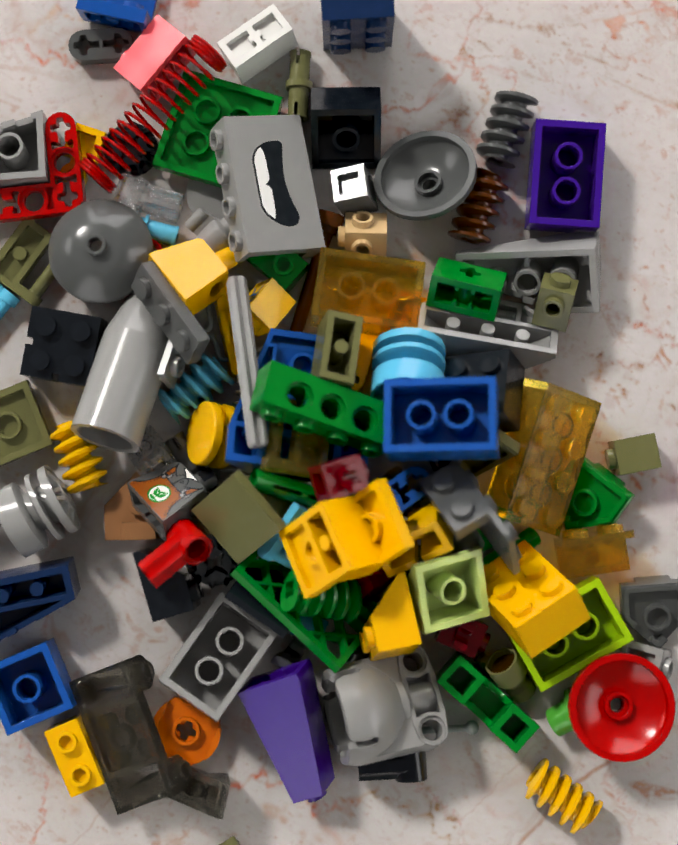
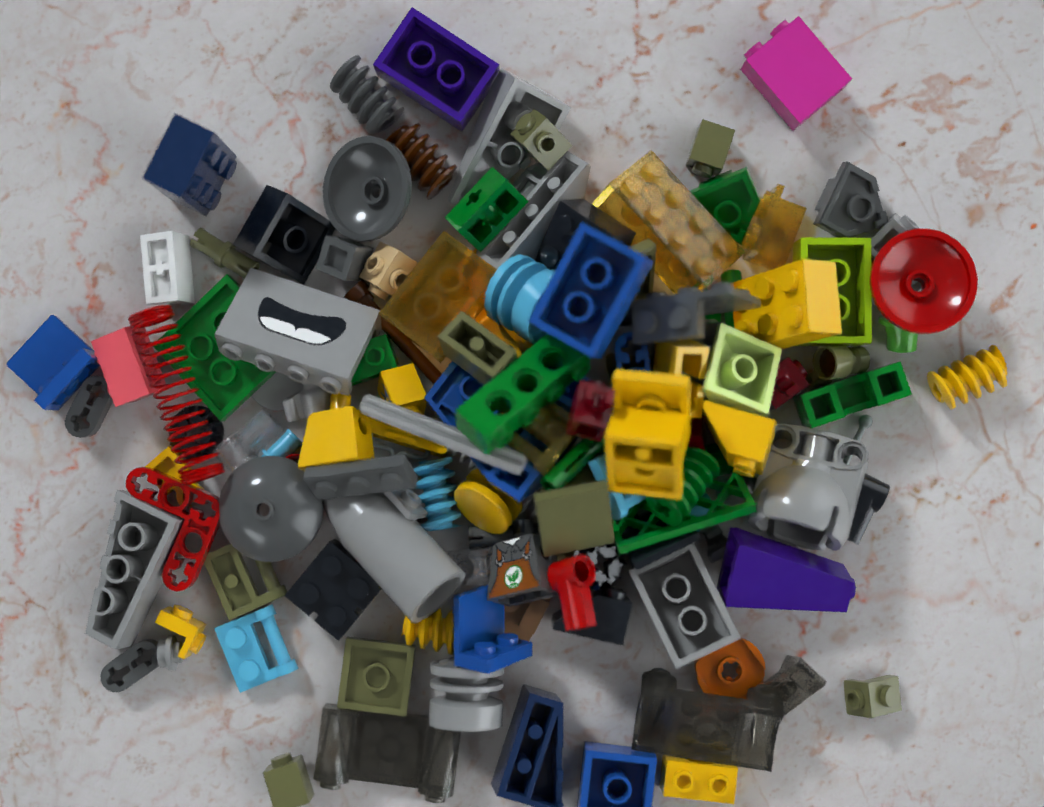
camera: 65 degrees left, 0 degrees up
(93, 494) = (481, 635): none -> blue bracket

